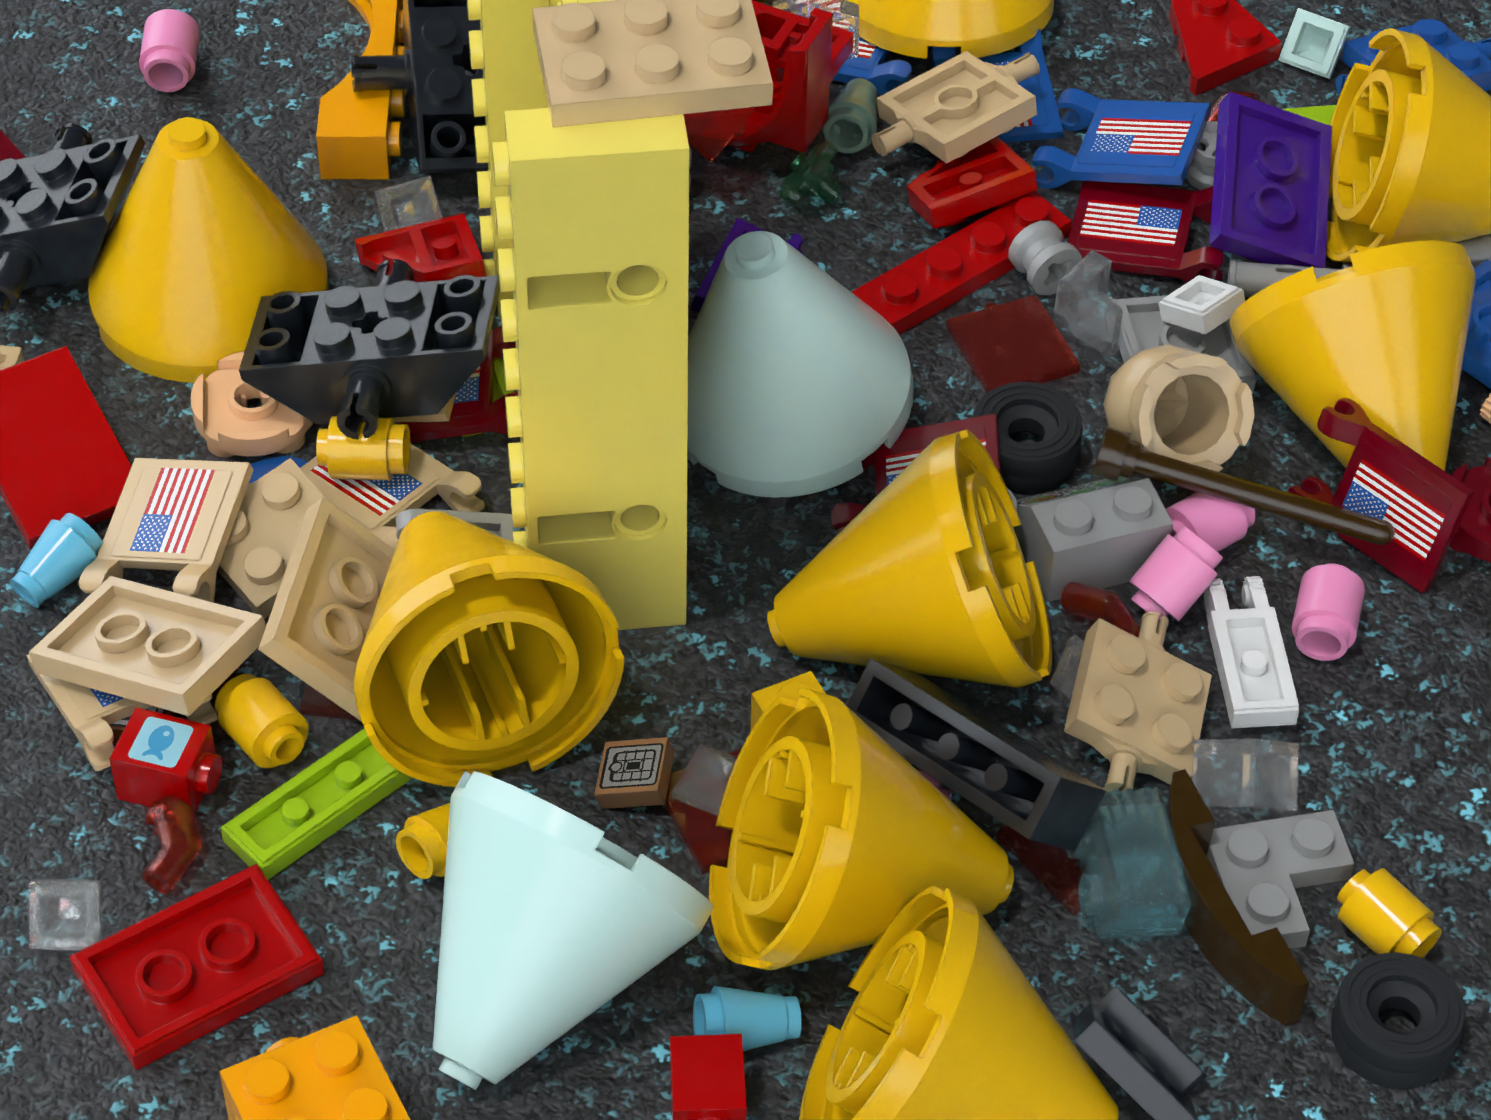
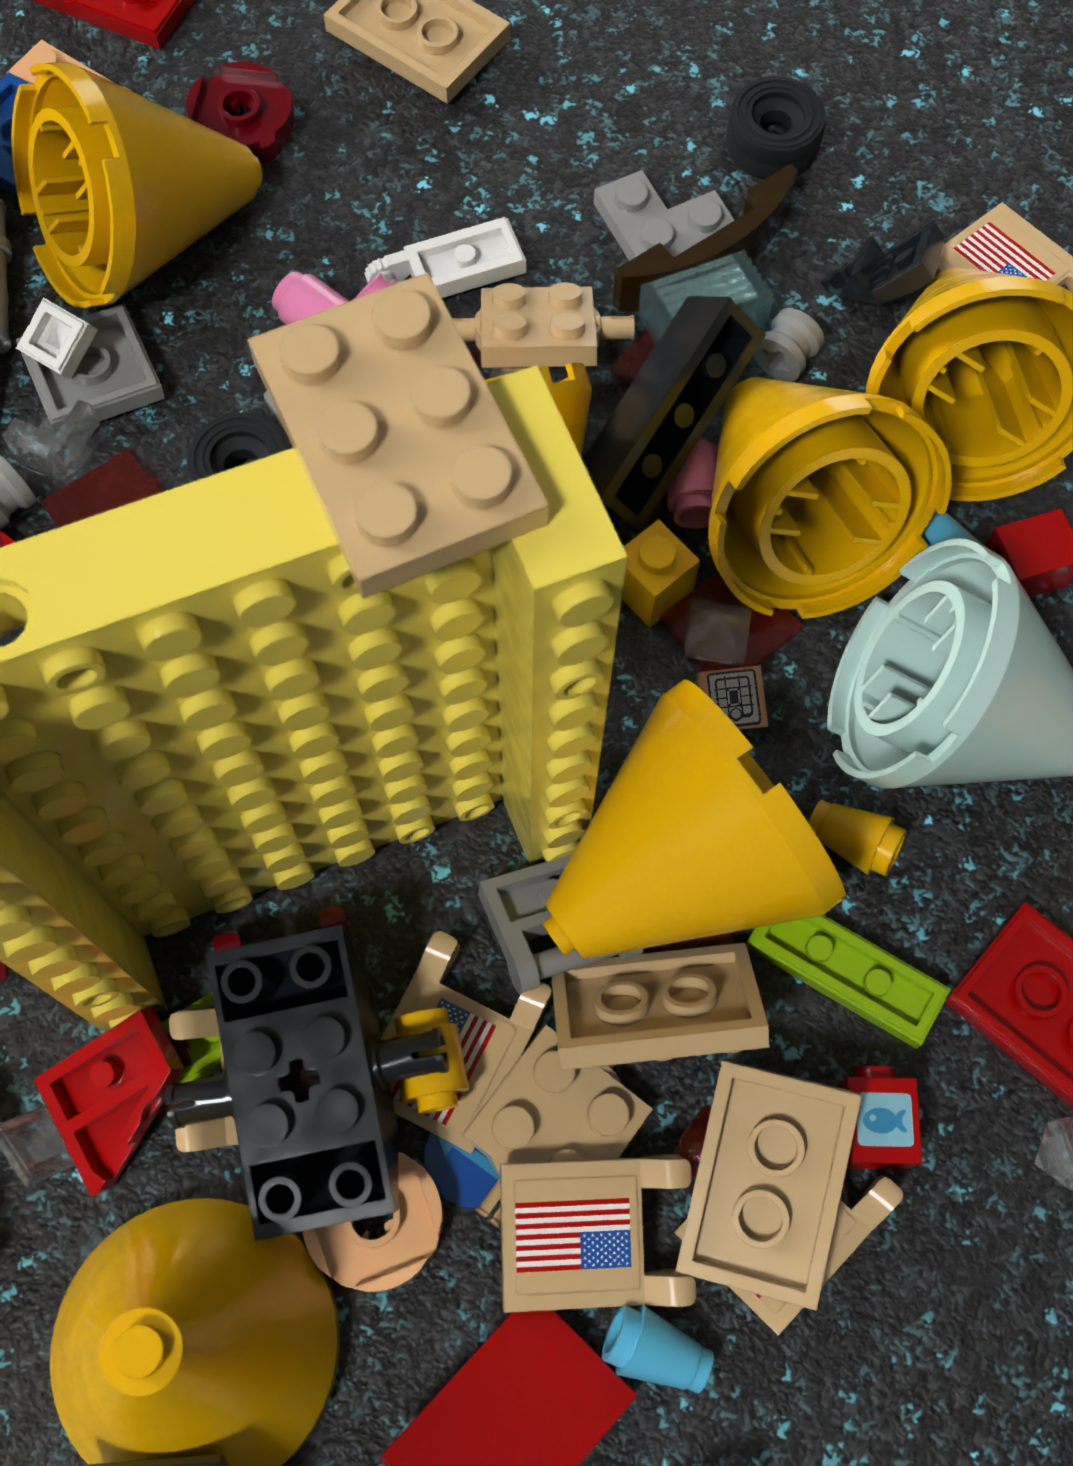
camera: 105 degrees left, 20 degrees up
(179, 841) = (947, 1080): clear red arm -> none
(261, 720) = (798, 1040): yellow brick -> none
(1060, 936) = (788, 344): none -> light grey wheel
(1123, 457) = (302, 243): dark brown piece -> none
(1181, 405) = (200, 334): tan tile -> none
(1246, 773) = (581, 248): clear panel -> none
(1327, 611) = (391, 213): bright pink brick -> none
(1387, 915) = (687, 141): yellow brick -> none
(1395, 486) = (279, 166): dark red flag -> none

